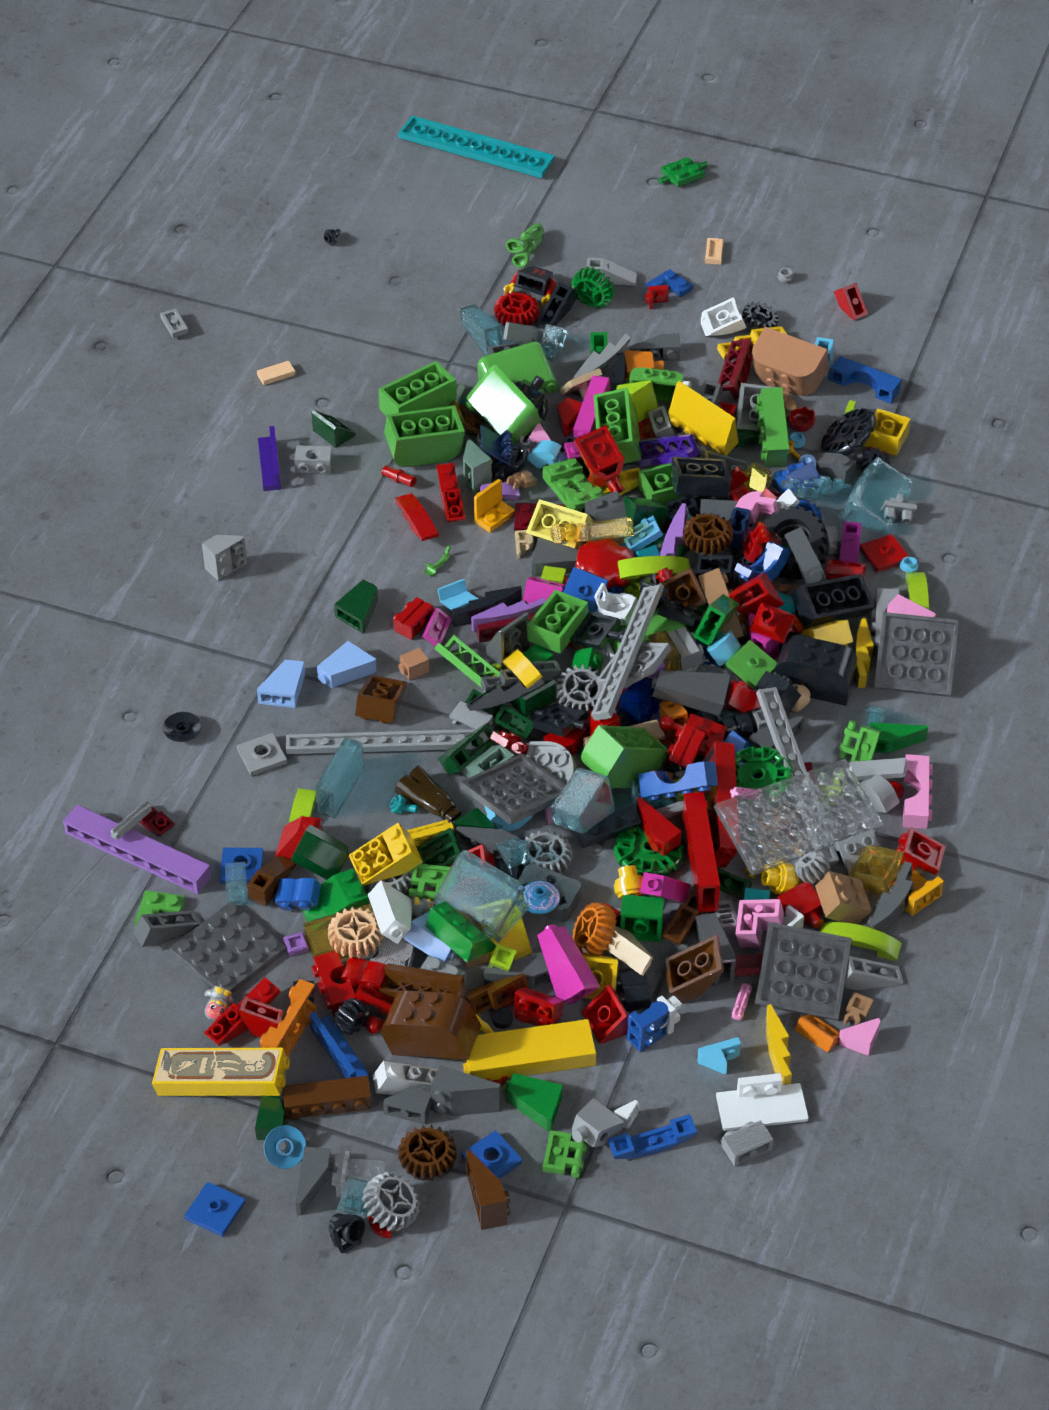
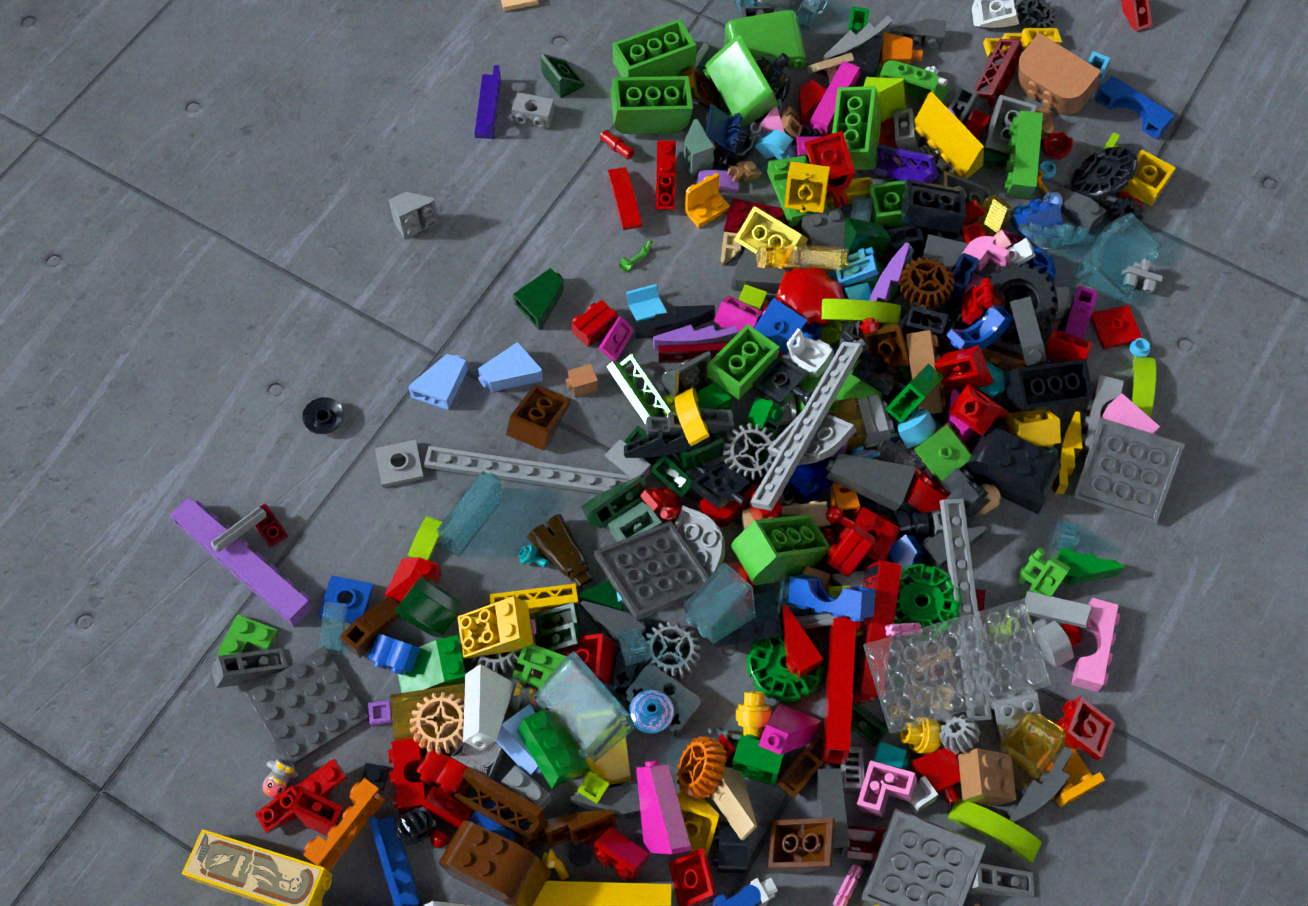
camera: 10 degrees right, 15 degrees up
(556, 433) = (790, 122): none -> medium nougat slope
(583, 476) = (806, 187): none -> yellow brick
(636, 489) = (862, 208): none -> clear light blue slope

